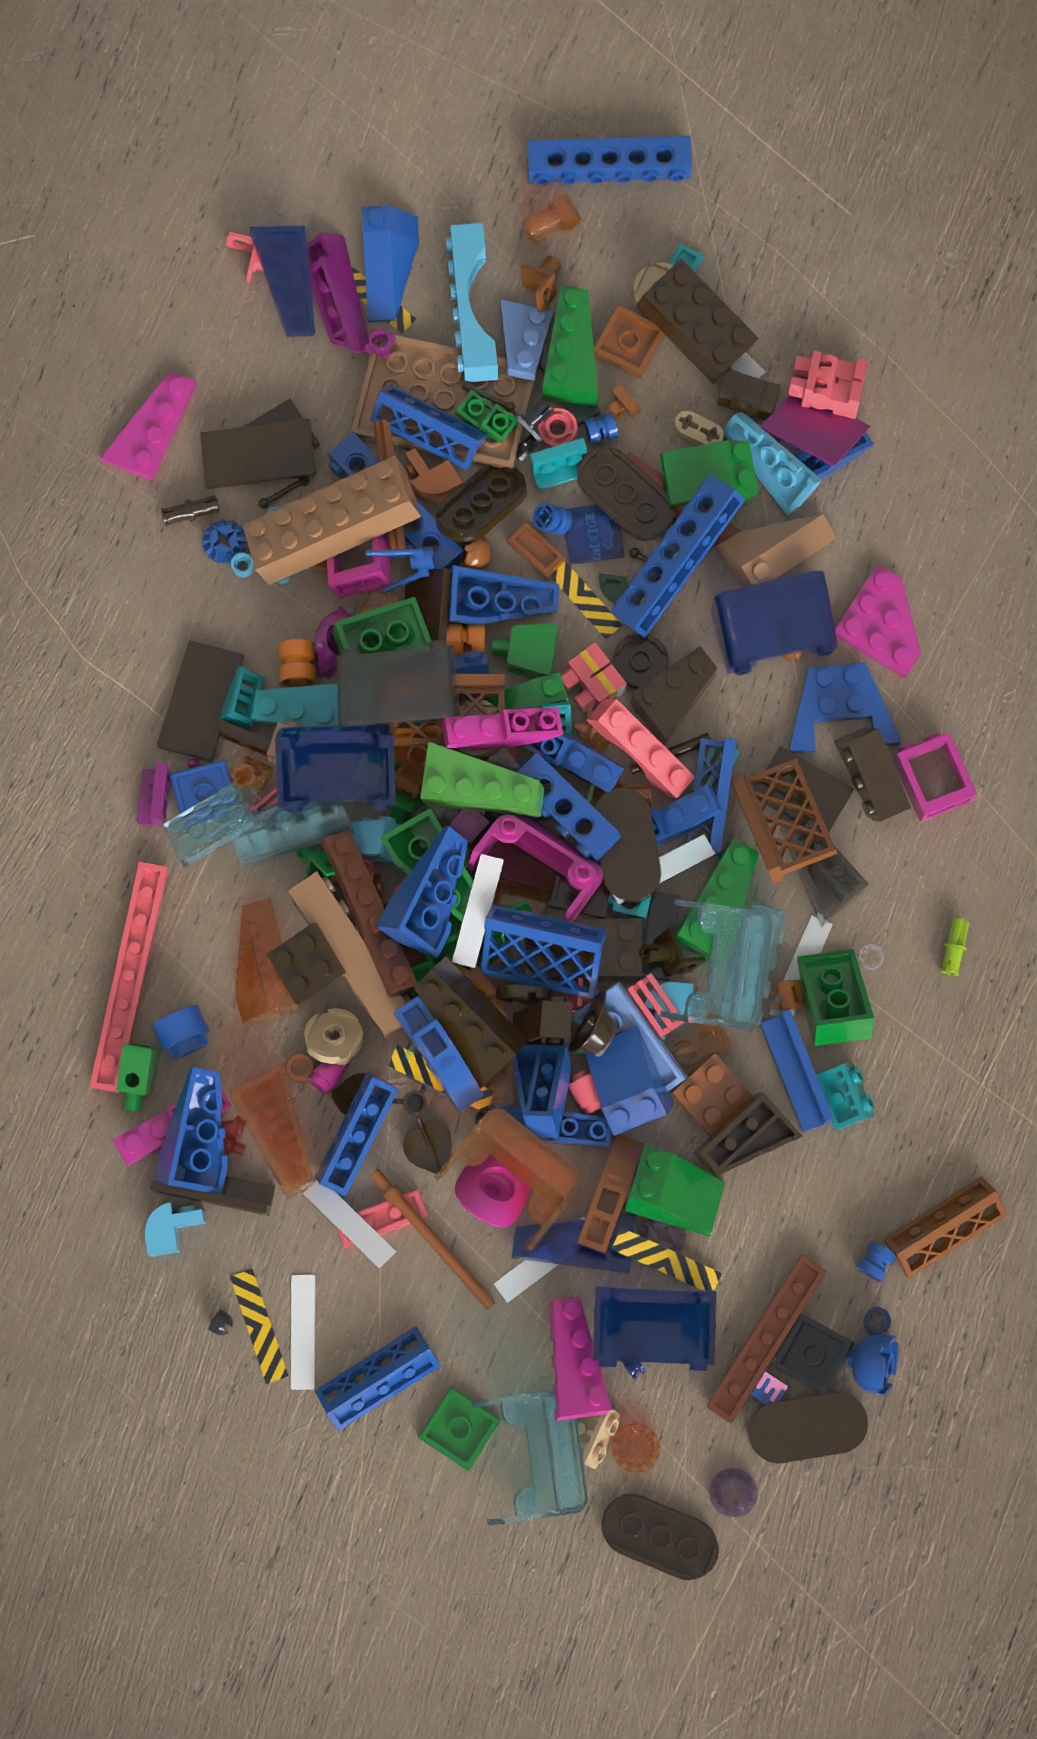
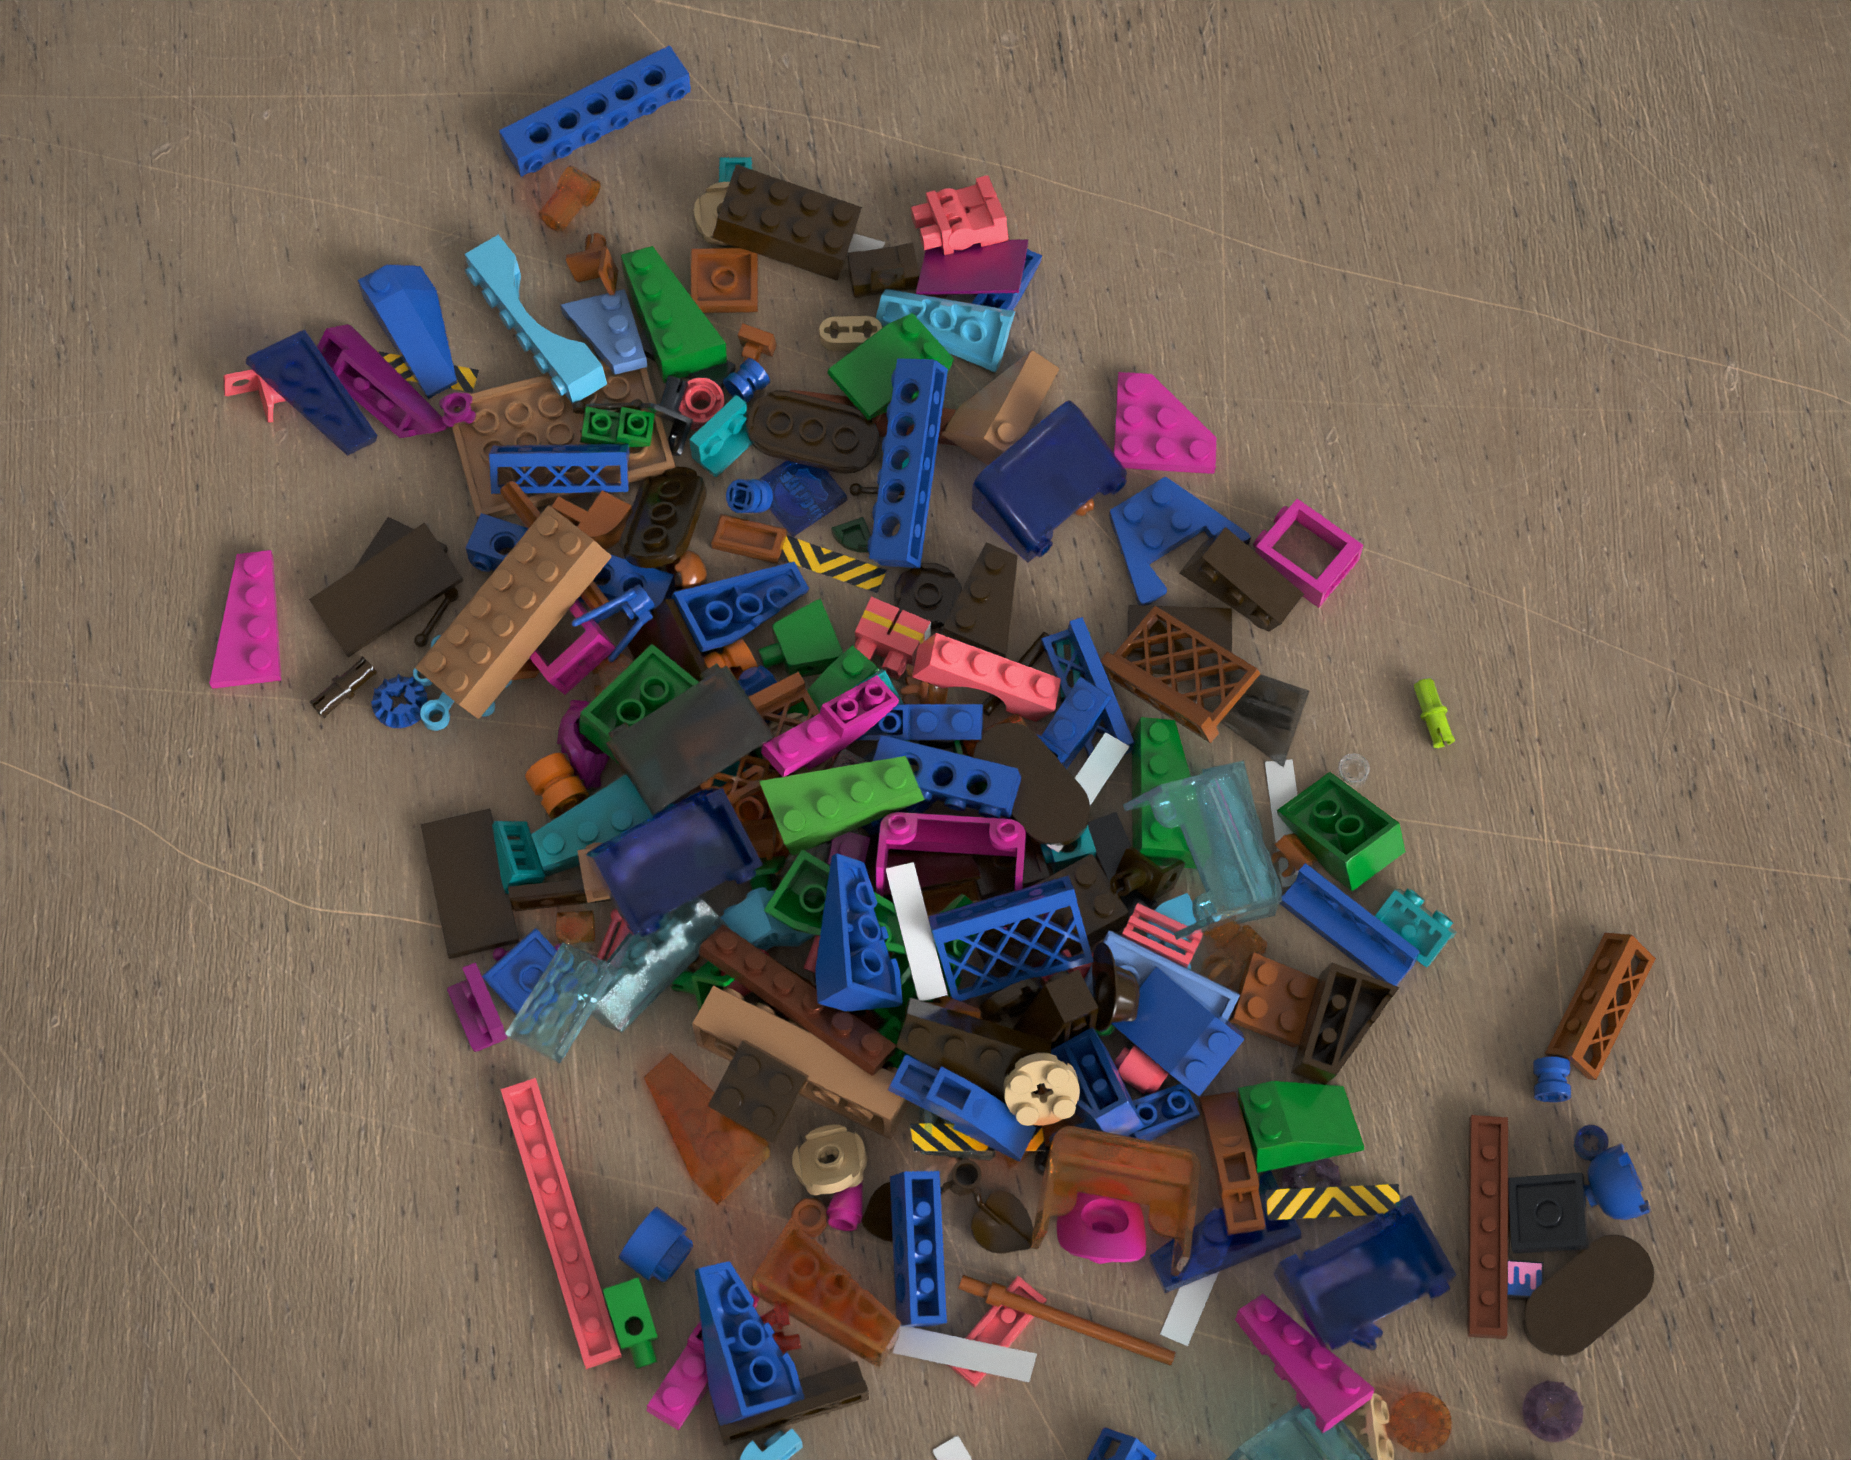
camera: 30 degrees left, 10 degrees down
(494, 1087) = (1046, 1108): none -> tan plate

